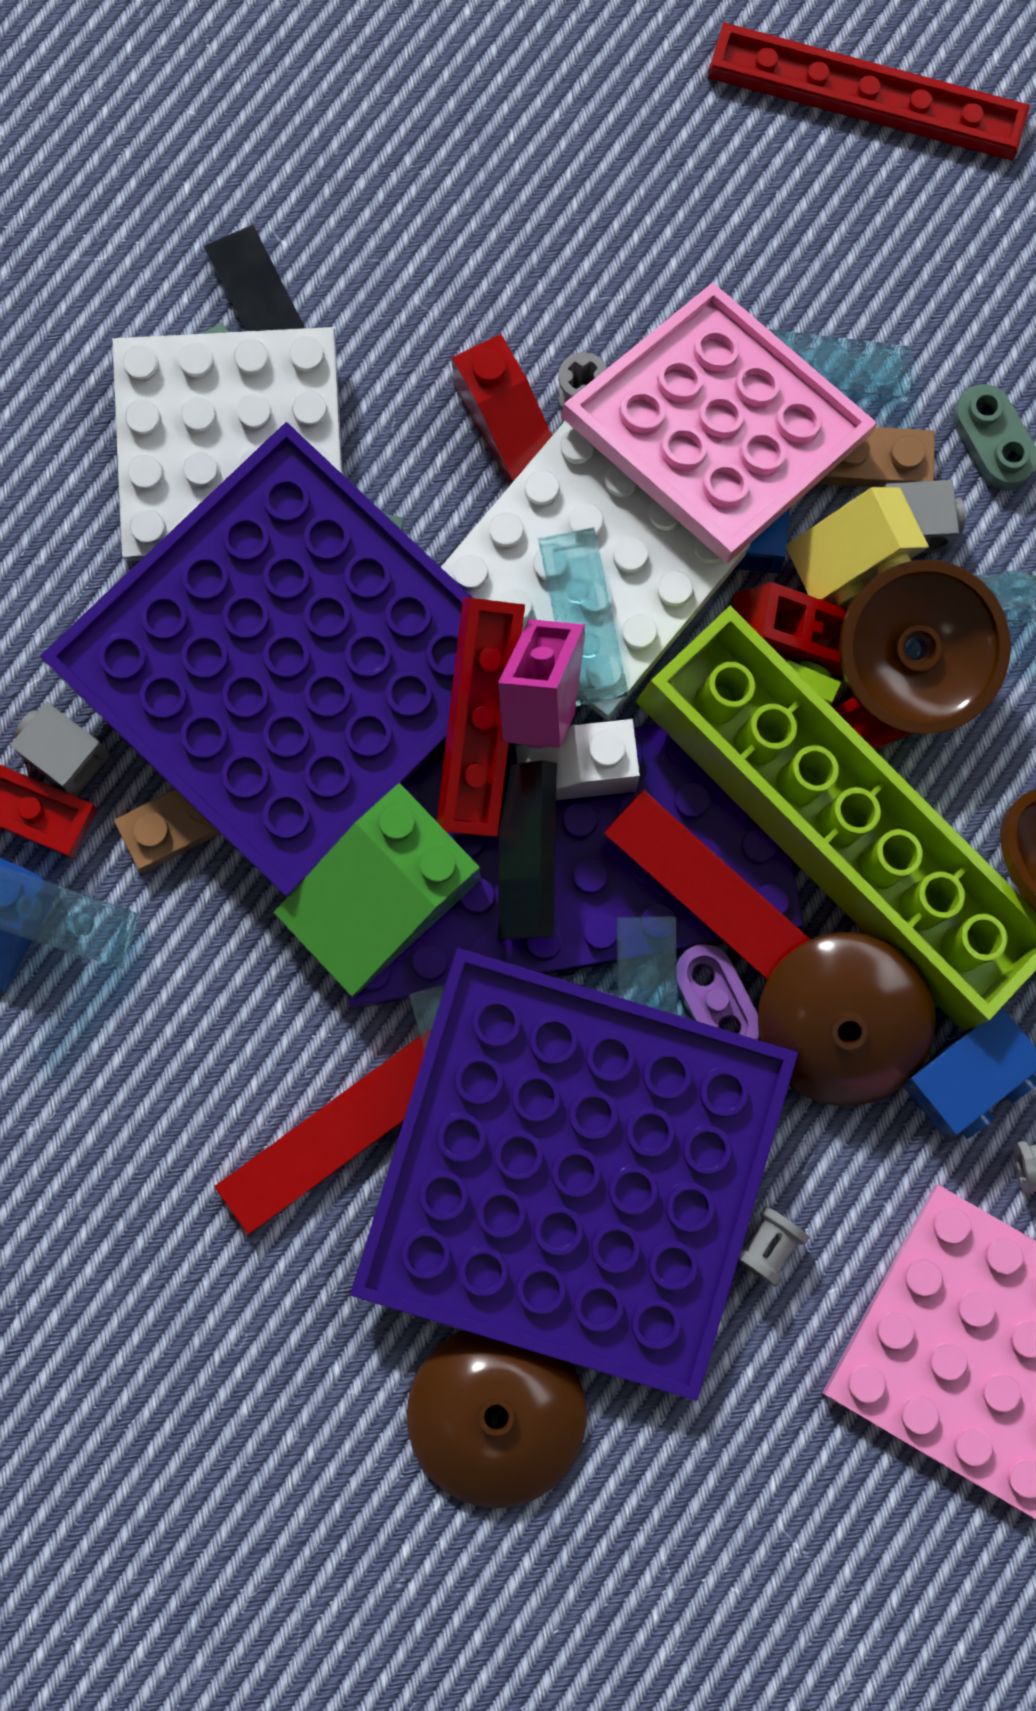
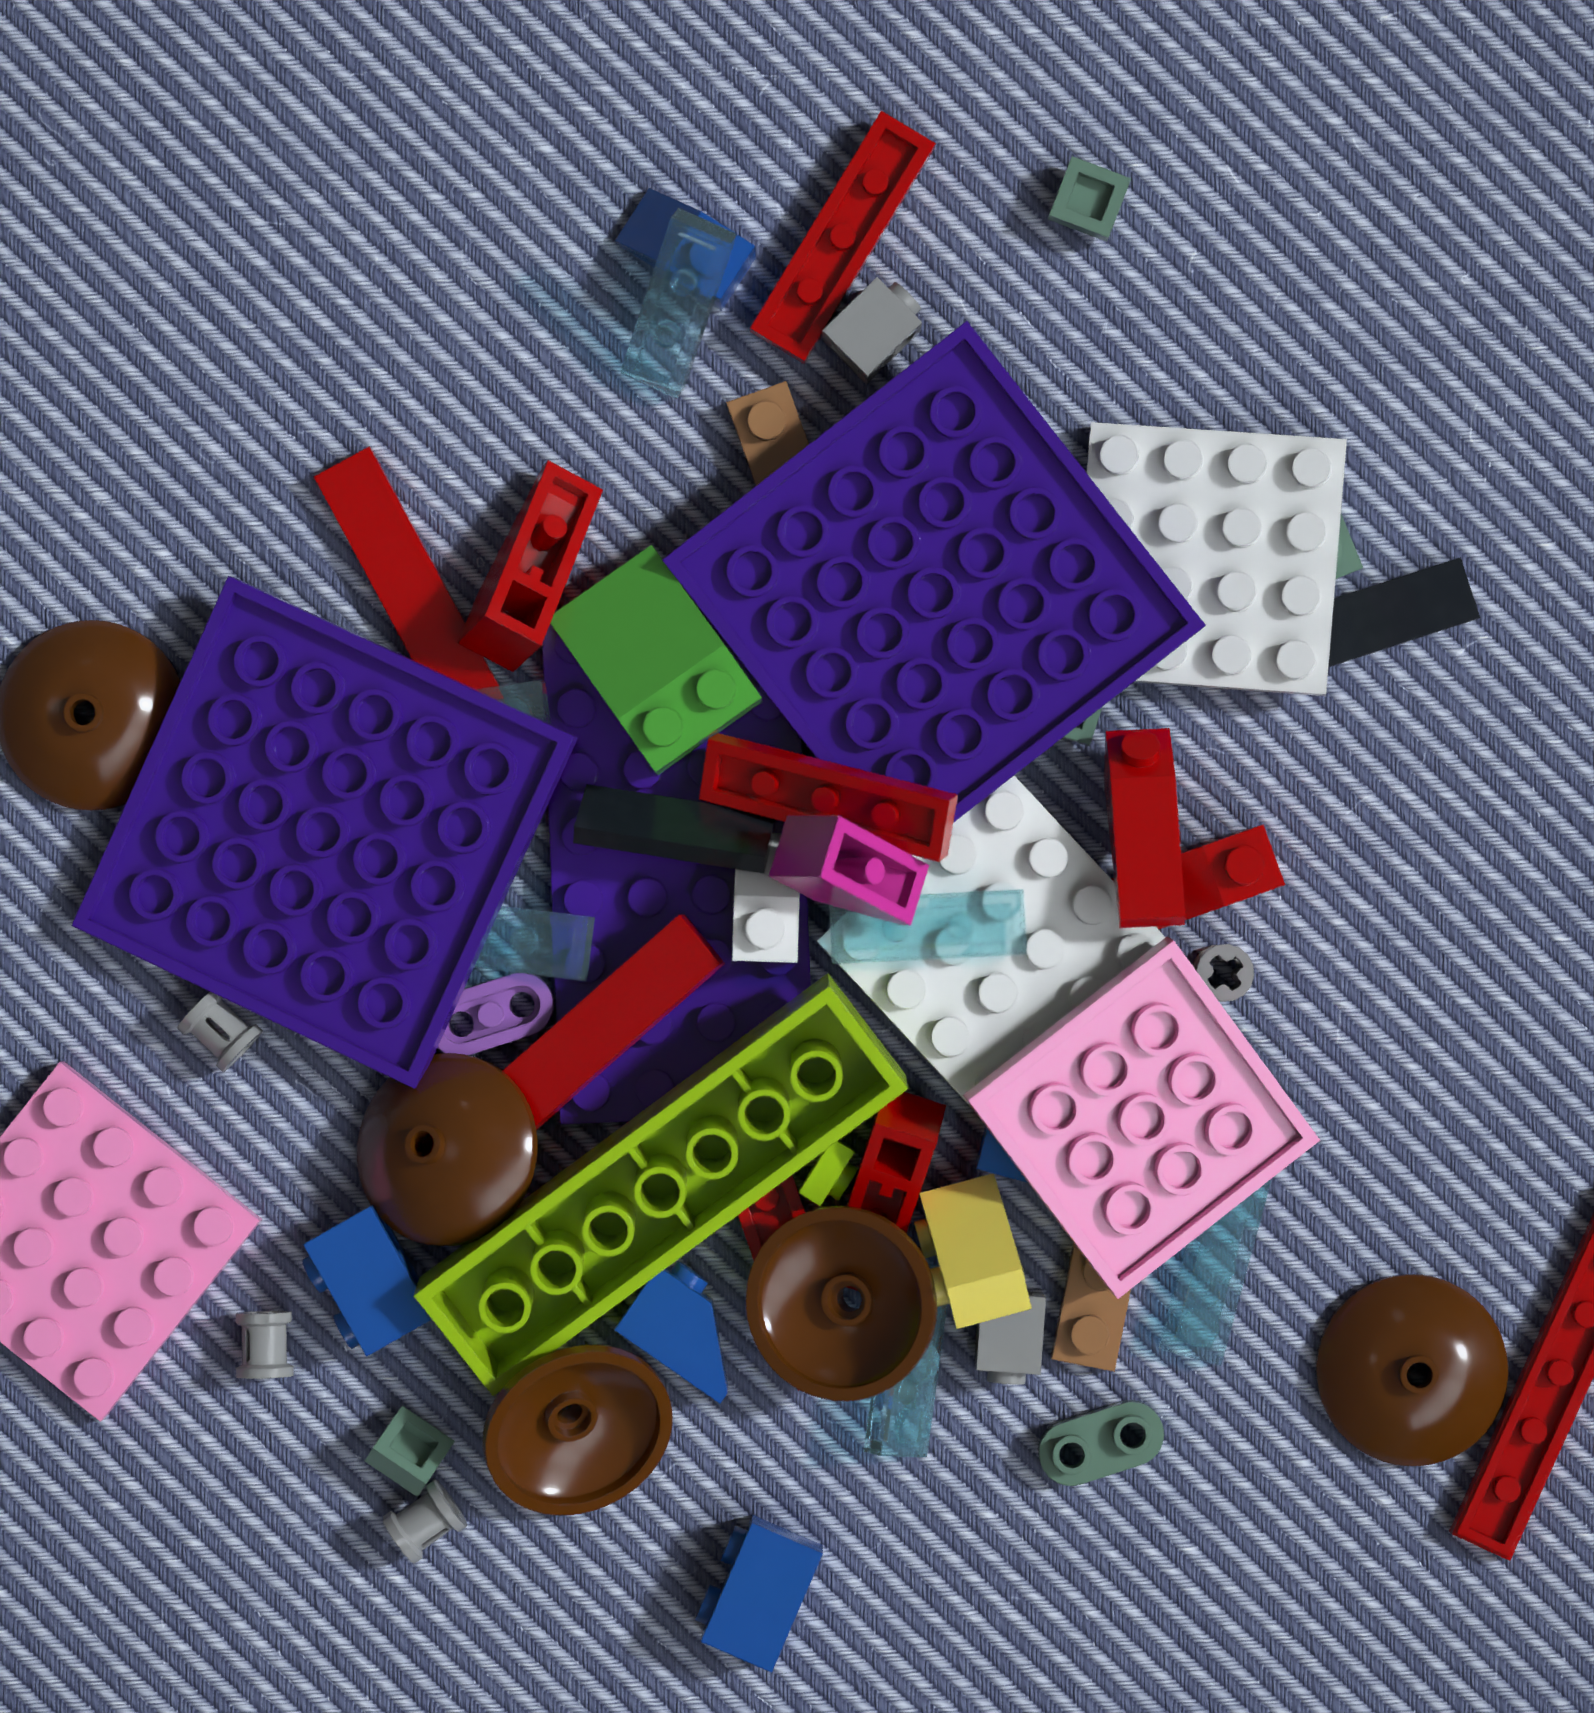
camera: 100 degrees right, 10 degrees up
(311, 1019) = (531, 569): none -> red slope
(467, 452) = (1144, 827): none -> red slope
(884, 229) = (1375, 1342): none -> reddish brown dish
(973, 788) = (679, 1328): none -> blue slope

